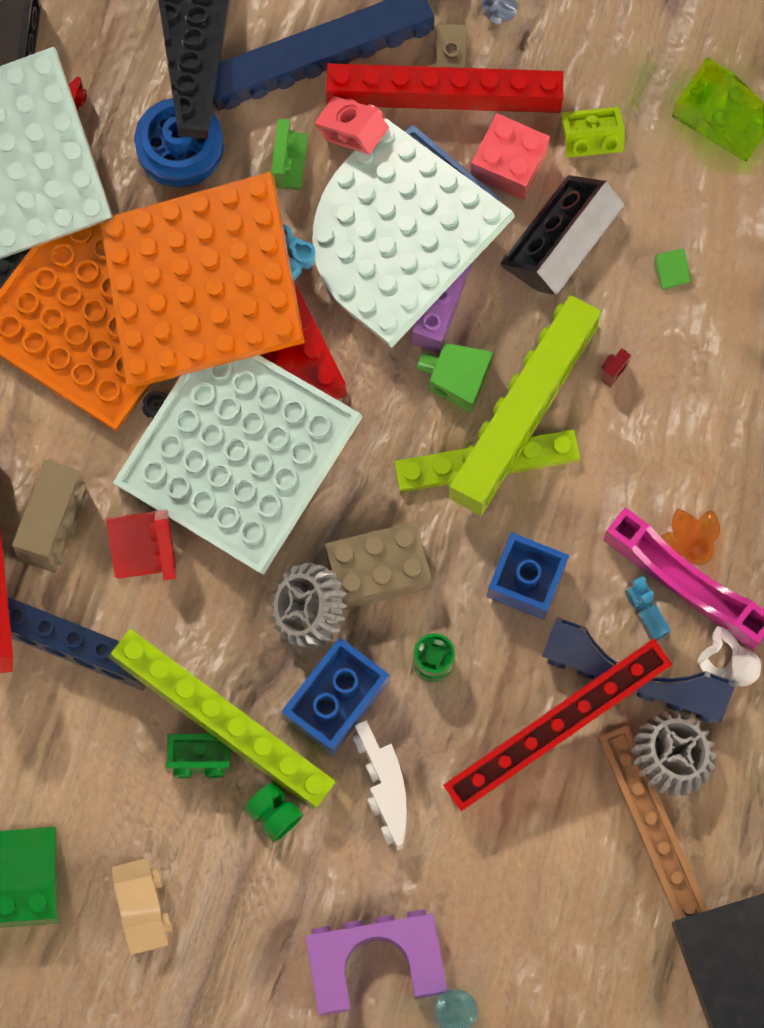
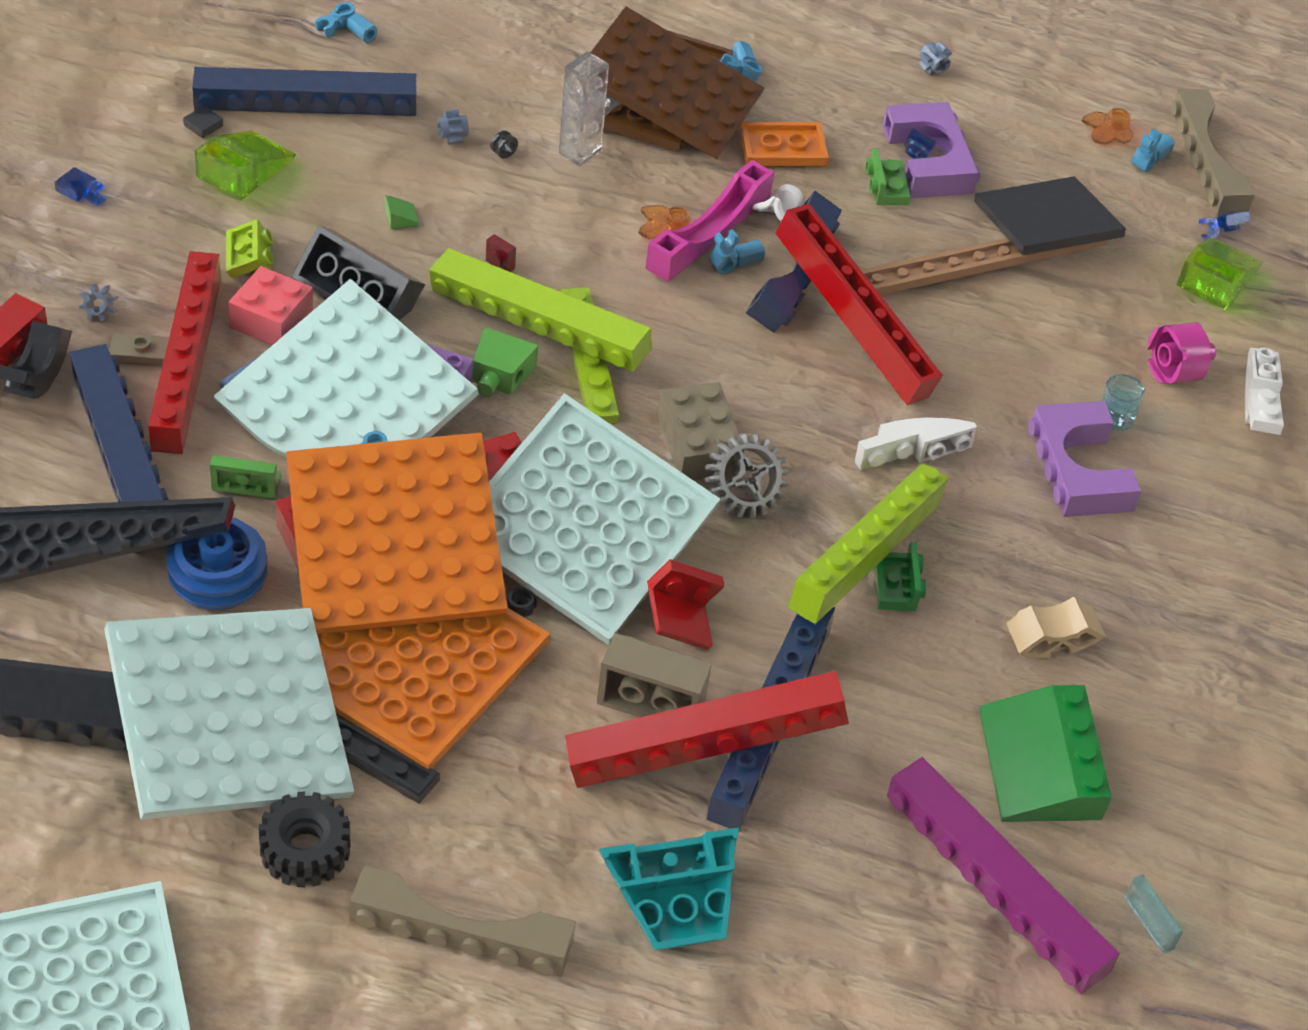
camera: 95 degrees left, 25 degrees down
(273, 812) = (951, 521): green wheel -> none
(335, 696) = (836, 466): blue brick -> none
(352, 124) = (222, 432): coral brick -> none
(433, 657) = (791, 395): green wheel -> none
(527, 576) = (710, 323): blue brick -> none
(685, 771) = (874, 241): light grey gear -> none

